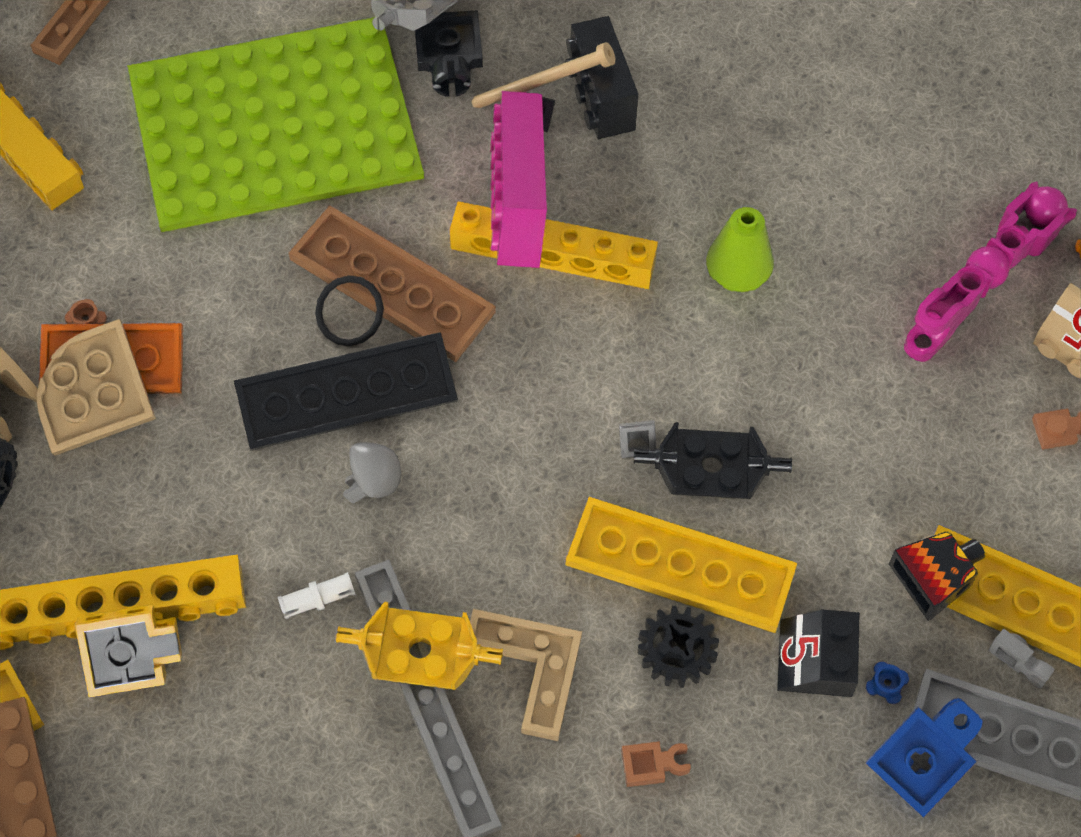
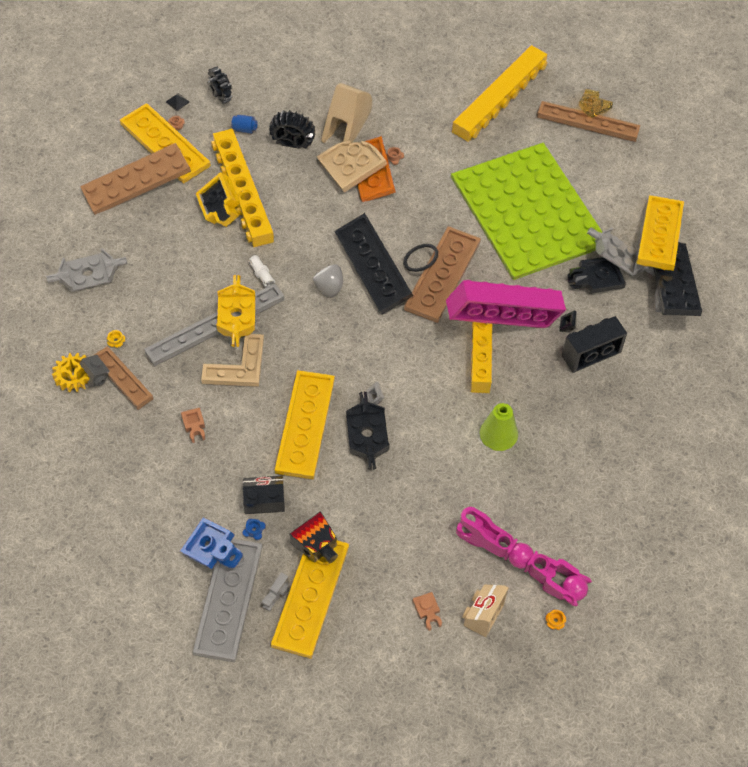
camera: 80 degrees right, 5 degrees down
(603, 55) = (592, 328): tan bar -> none
(682, 630) = (257, 428): black gear -> none

